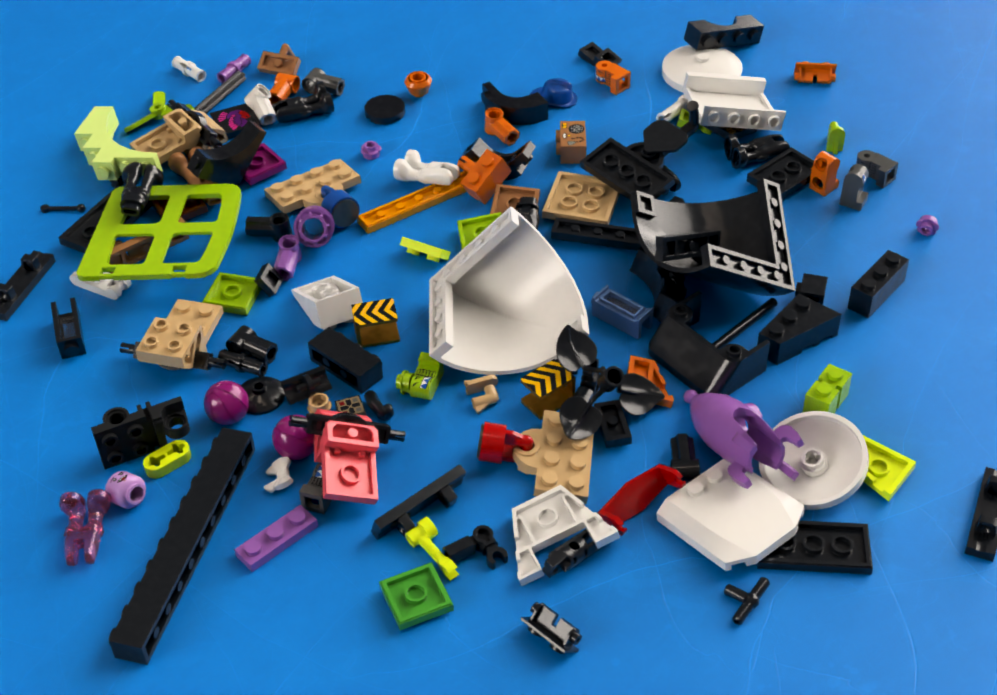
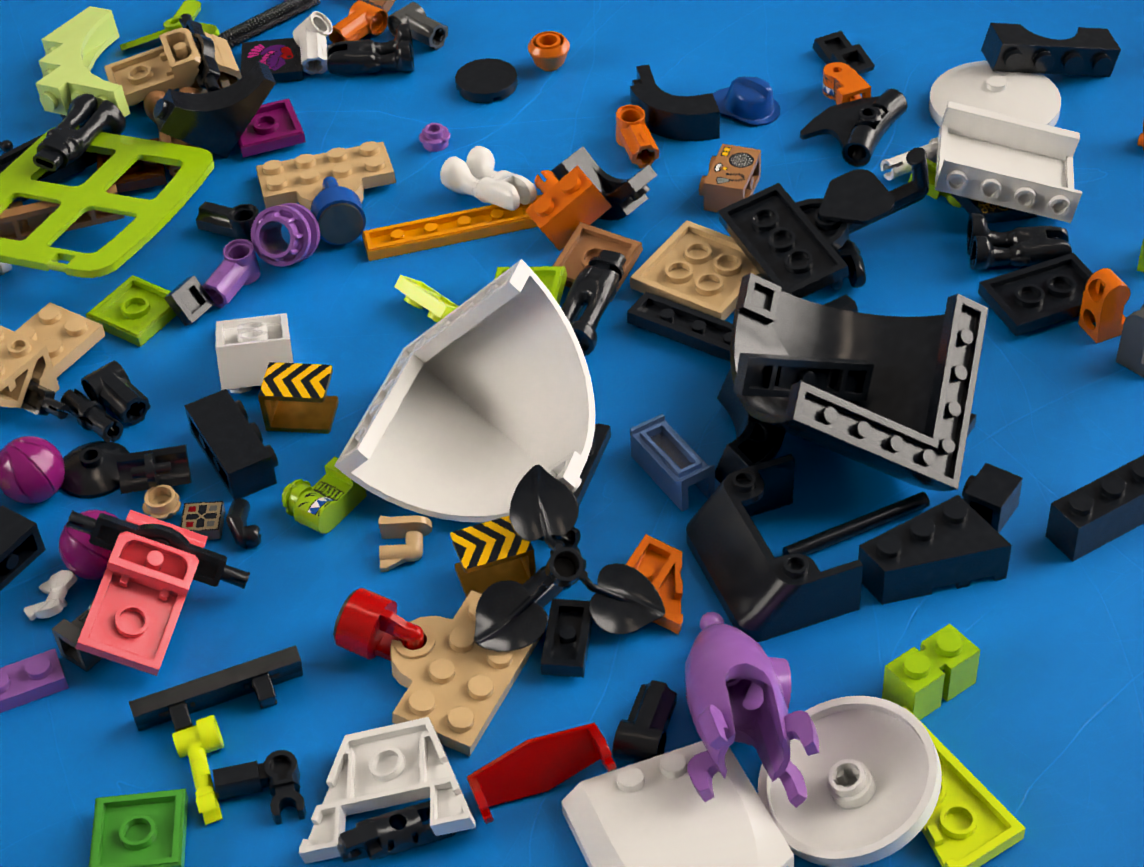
camera: 20 degrees right, 0 degrees up
(631, 95) = (858, 124): none -> black pin

